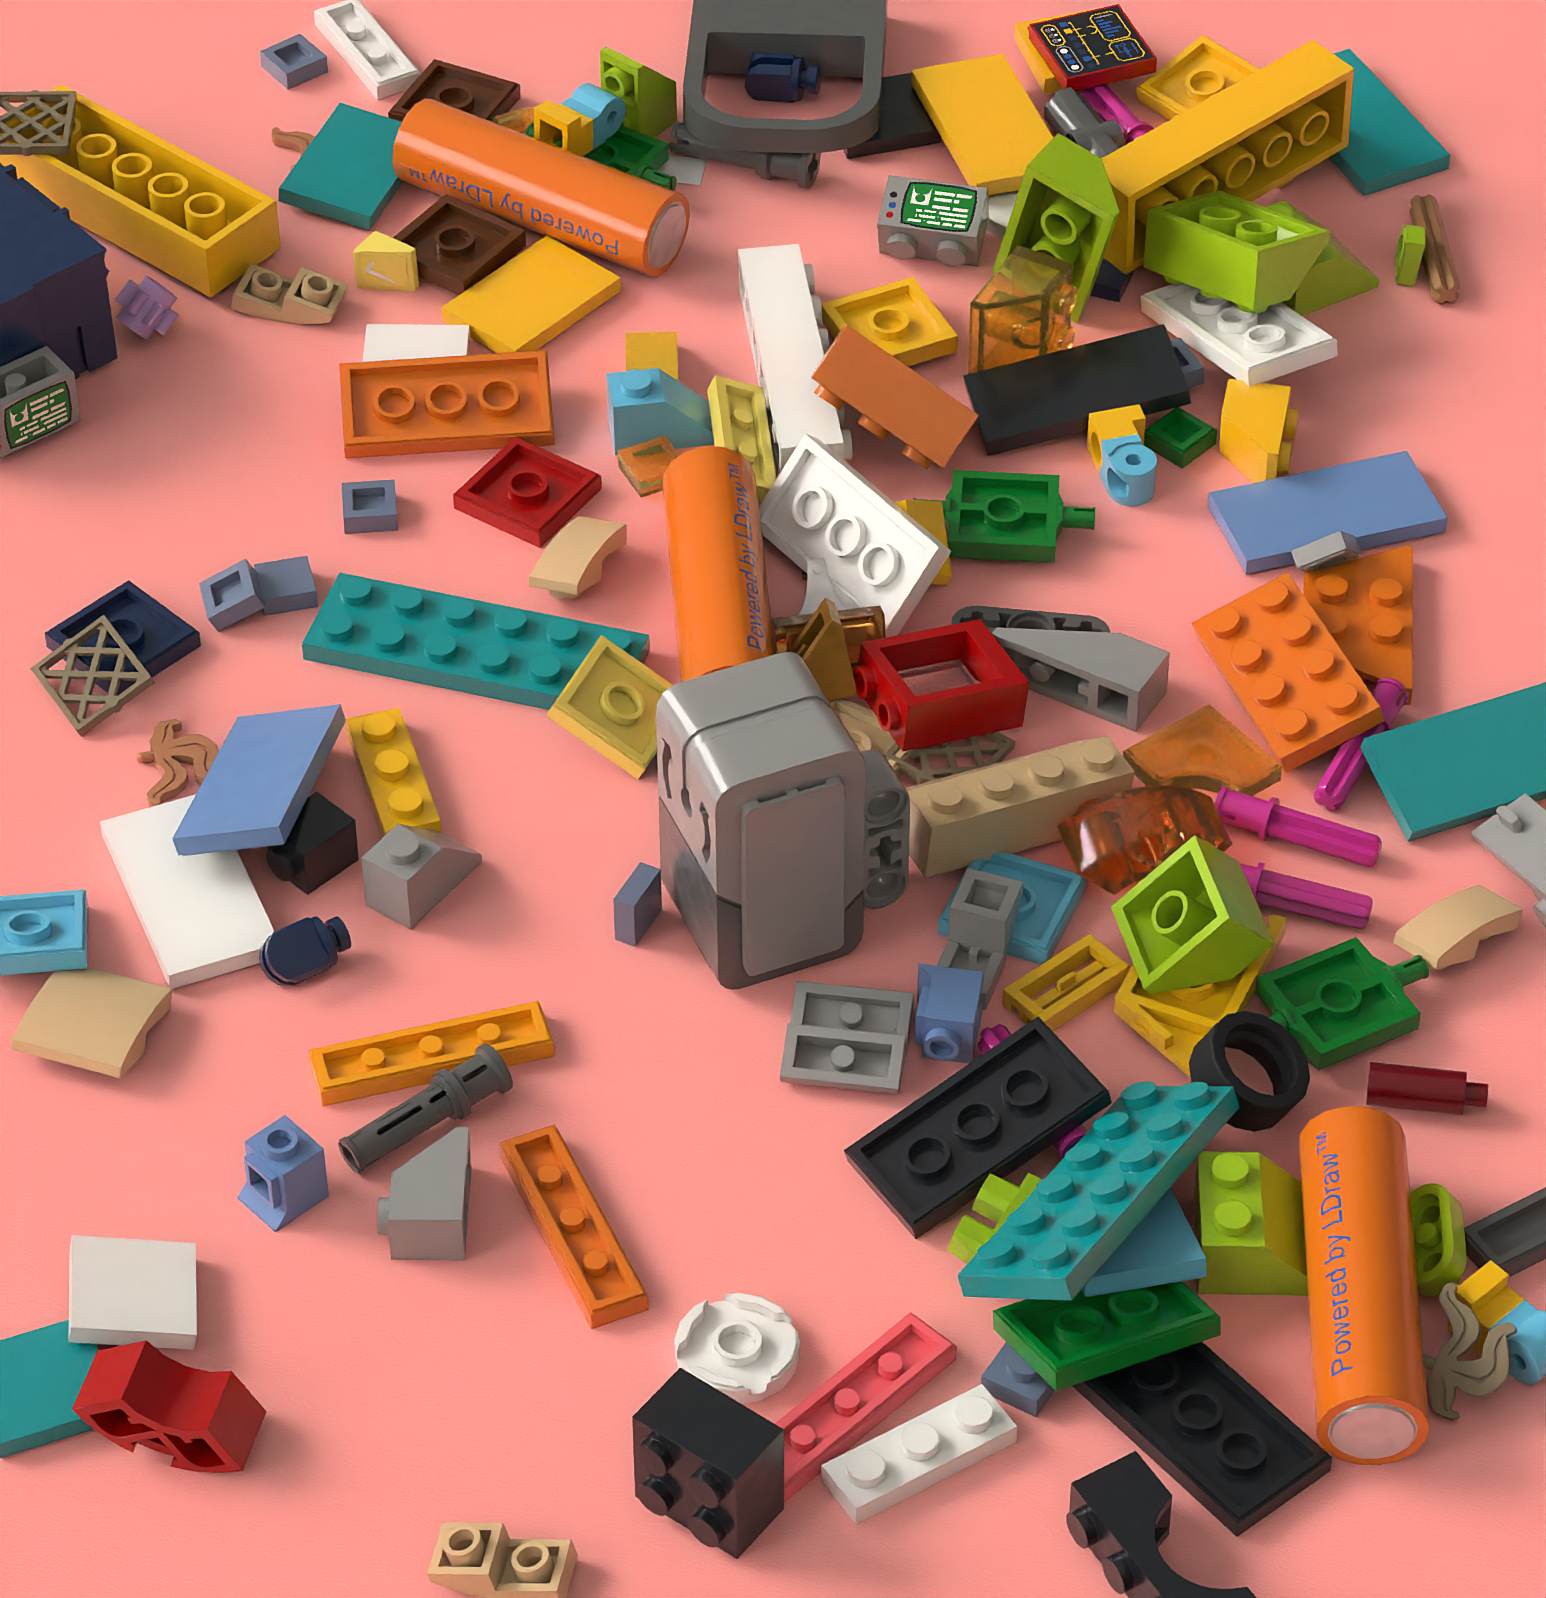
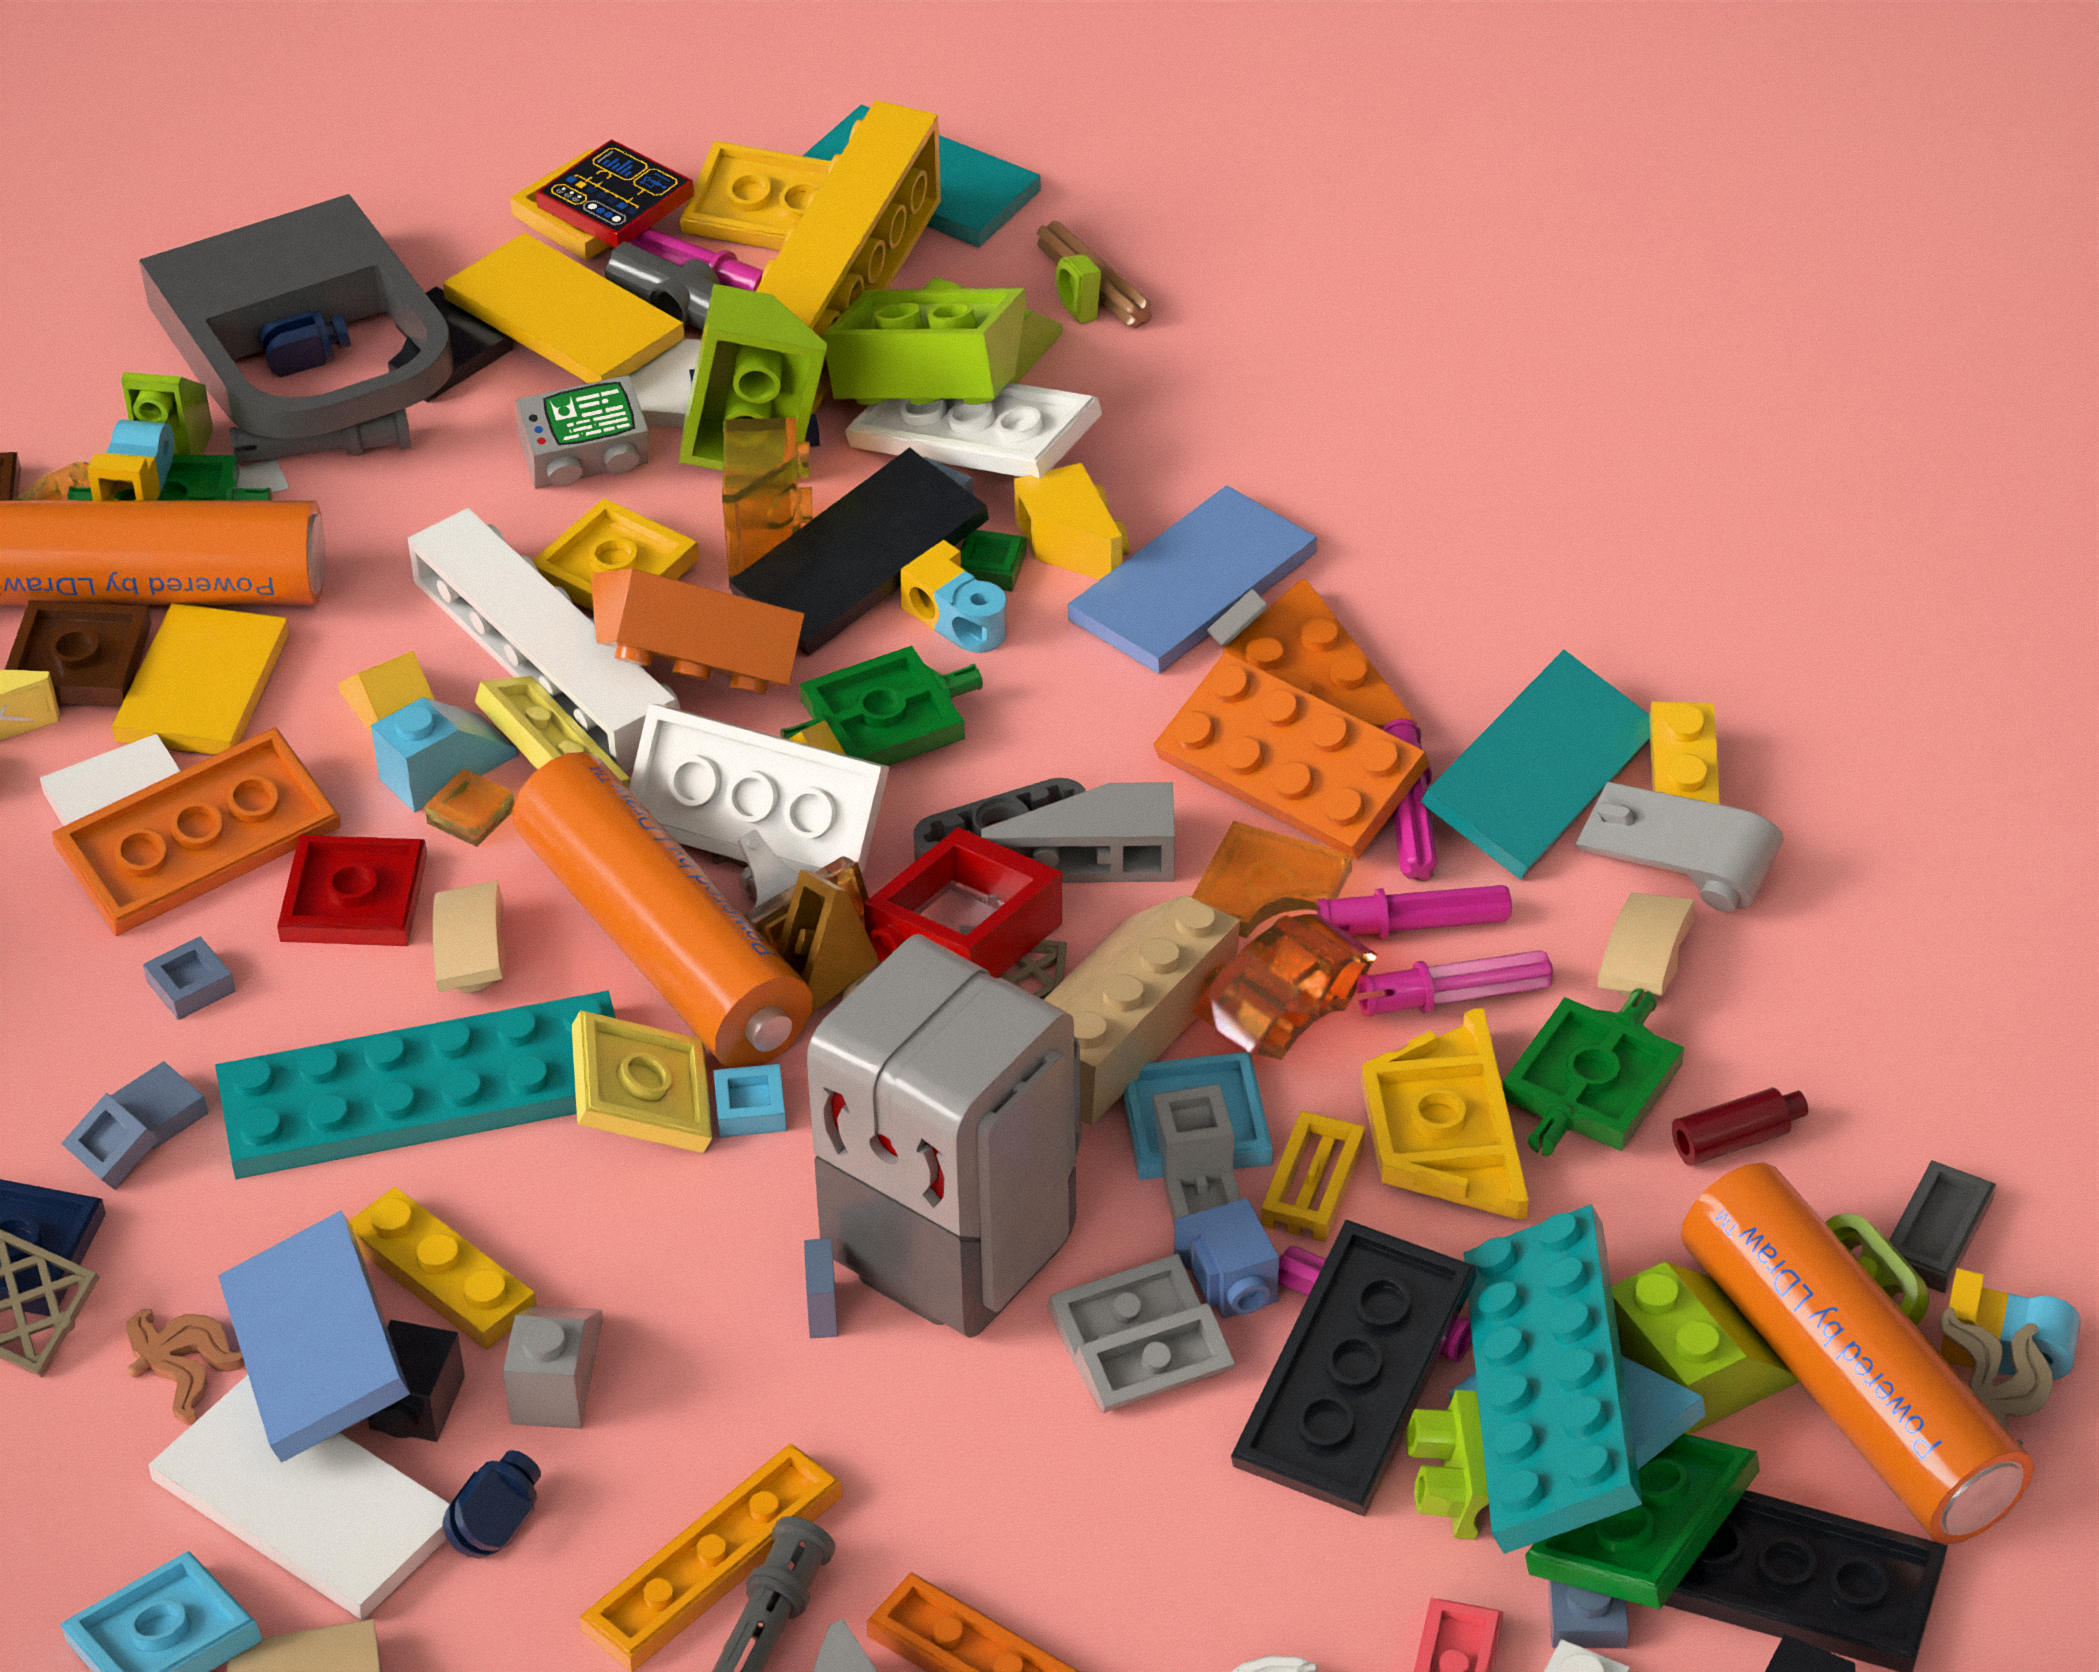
camera: 30 degrees left, 0 degrees up
(1192, 920) = (1411, 1052): lime slope -> none
(1272, 1048) = (1588, 1155): black tyre -> none

